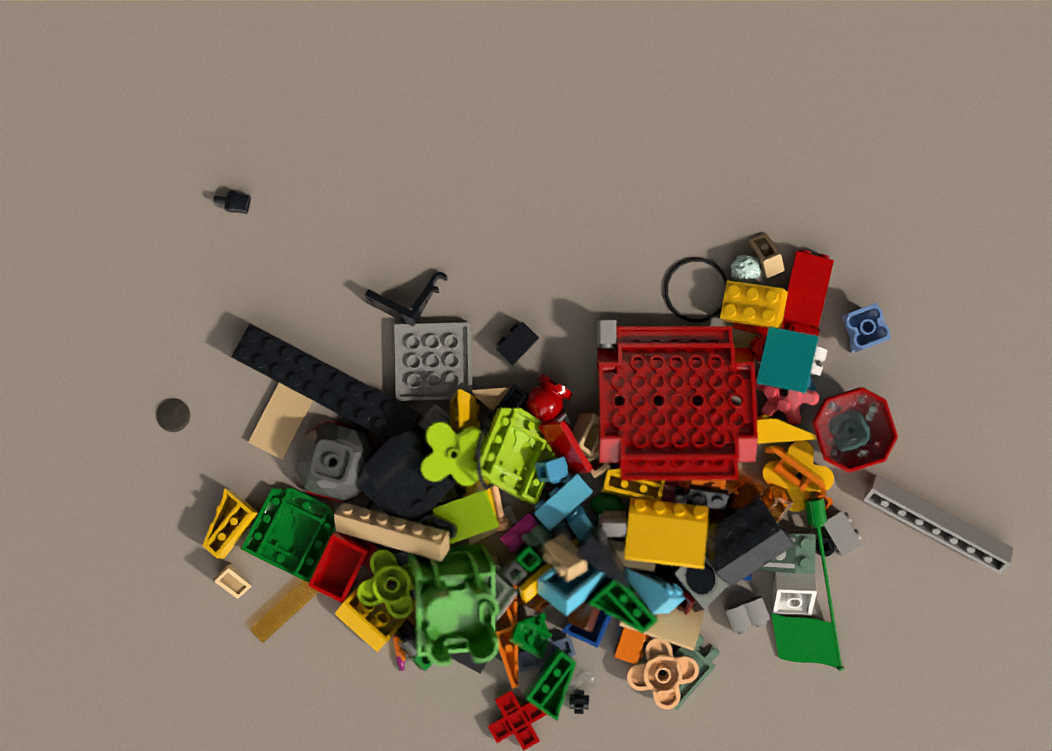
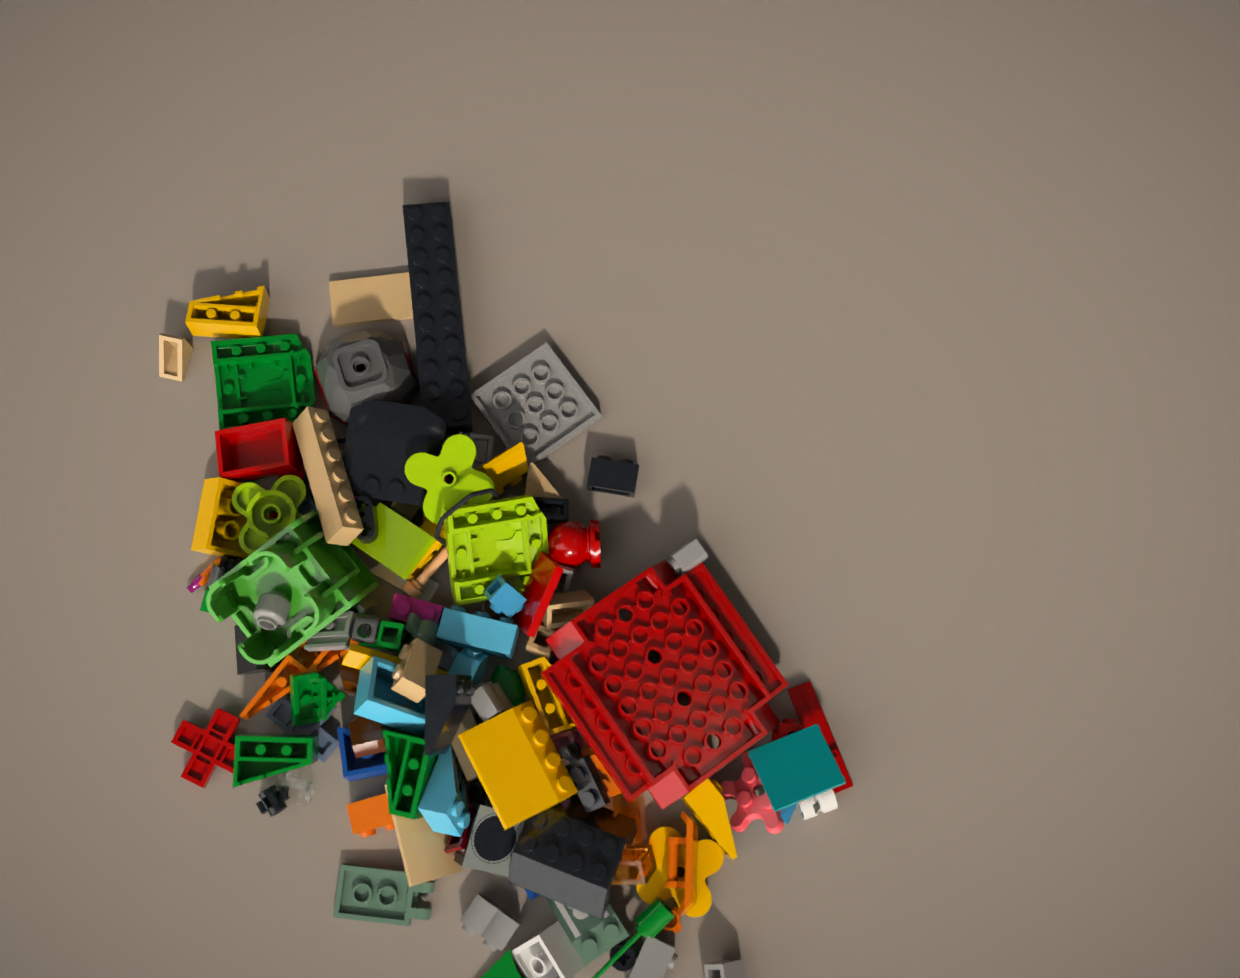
camera: 45 degrees right, 10 degrees down
(173, 415) = (308, 196): clear smoke piece -> none
(234, 202) = (560, 116): black piece -> none
(283, 611) = (173, 429): clear yellow tile -> none
(400, 312) = (579, 352): black hinge -> none
(462, 624) = (272, 610): none -> light grey head
(664, 687) = (348, 885): light nougat plant -> none
(668, 280) = (778, 656): black piece -> none
(745, 269) = (858, 660): light aqua piece -> none
(753, 304) = (828, 692): yellow piece -> none
(767, 254) = (889, 672): tan slope -> none
(807, 288) = (885, 739): red panel -> none
(866, 327) = (891, 833): medium blue piece -> none
(871, 424) = (798, 904): clear light blue rock -> none

